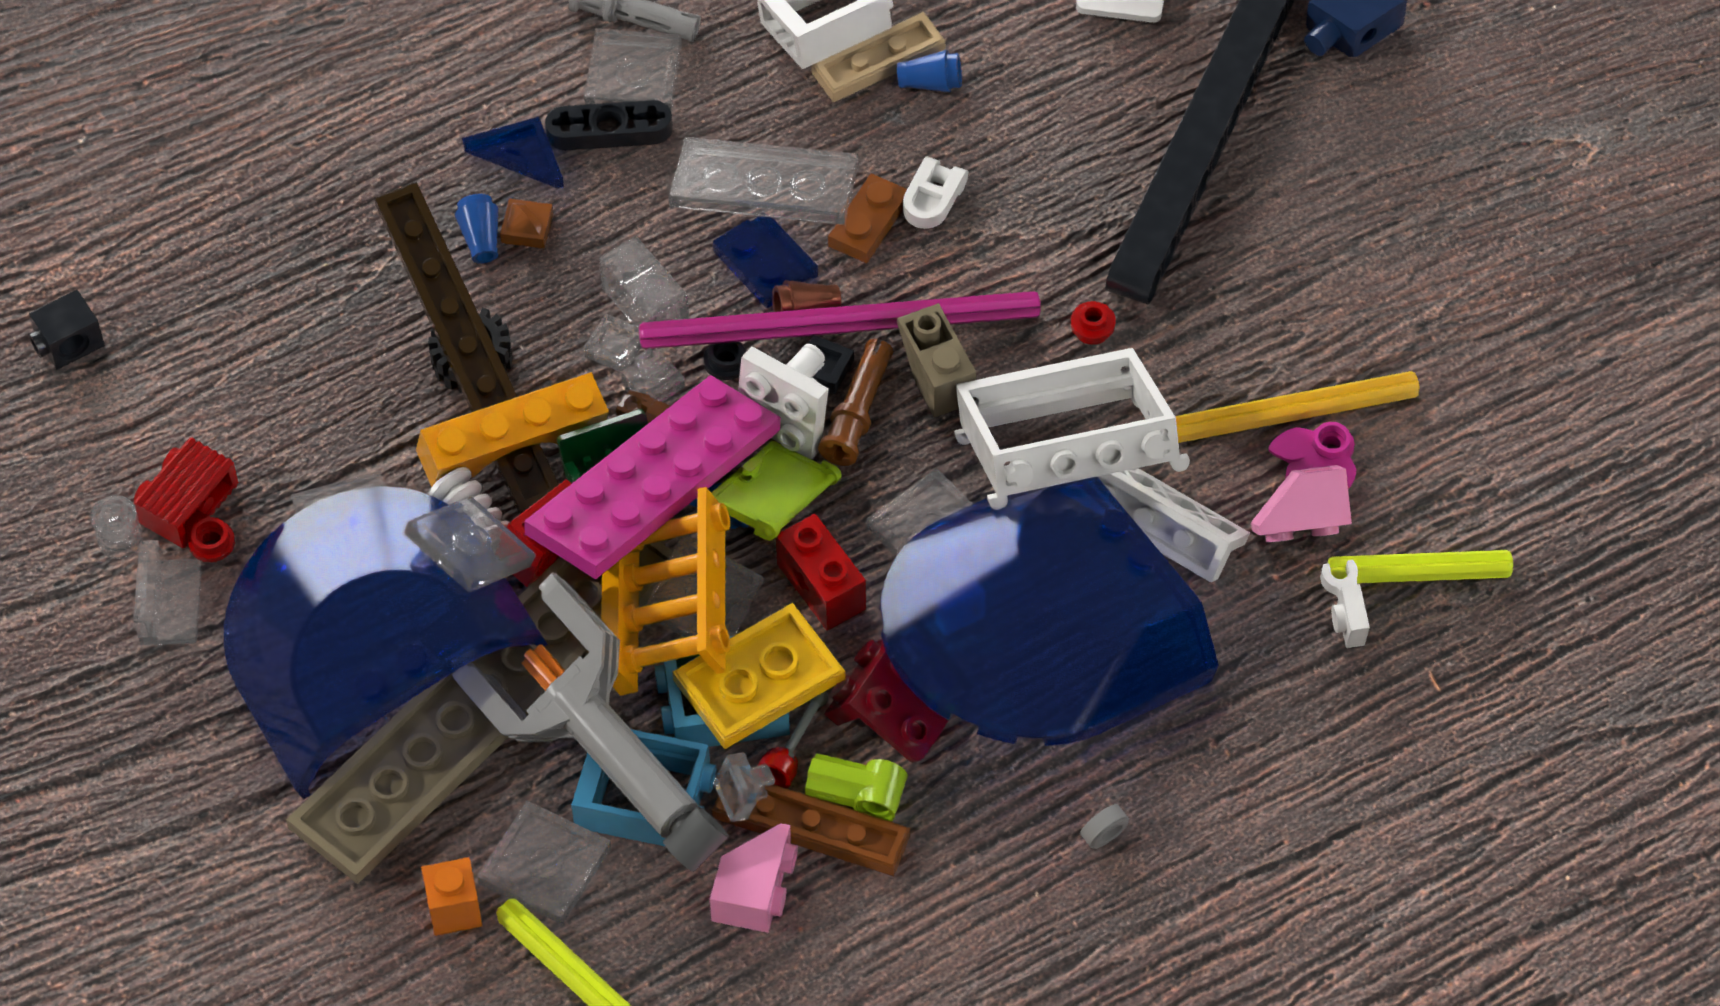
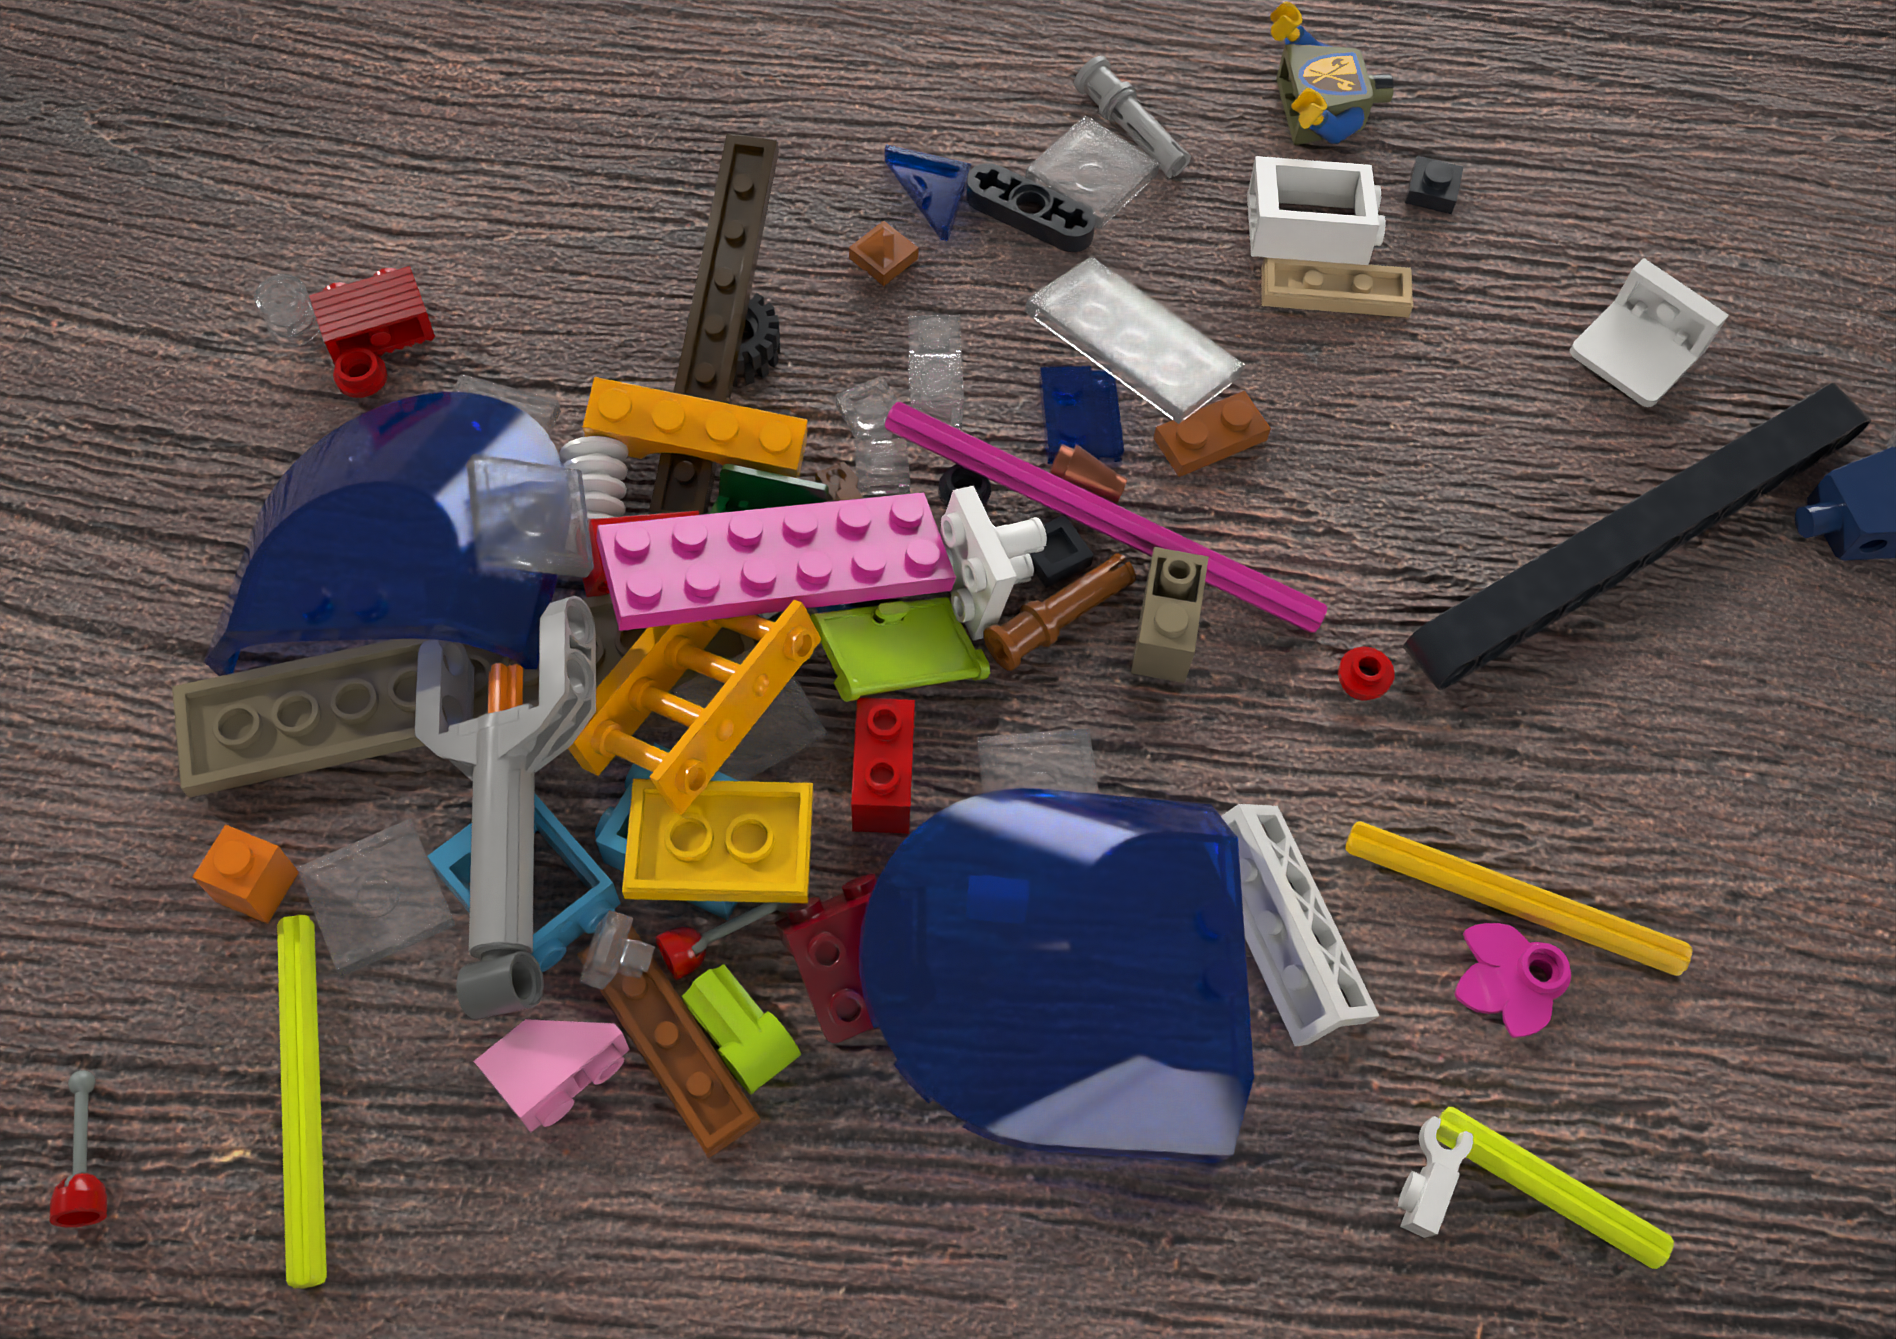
camera: 30 degrees right, 5 degrees up
(65, 330) = (404, 114): black brick -> none
(166, 597) = (271, 399): clear panel -> none
(479, 225) = (836, 228): blue cone -> none
(929, 204) = (1280, 452): white plate -> none
(931, 72) = (1377, 328): blue cone -> none
(1058, 390) = (1234, 820): white window -> none
(1104, 826) = (967, 1267): light grey tile -> none
(1306, 501) = (1462, 1024): bright pink slope -> none

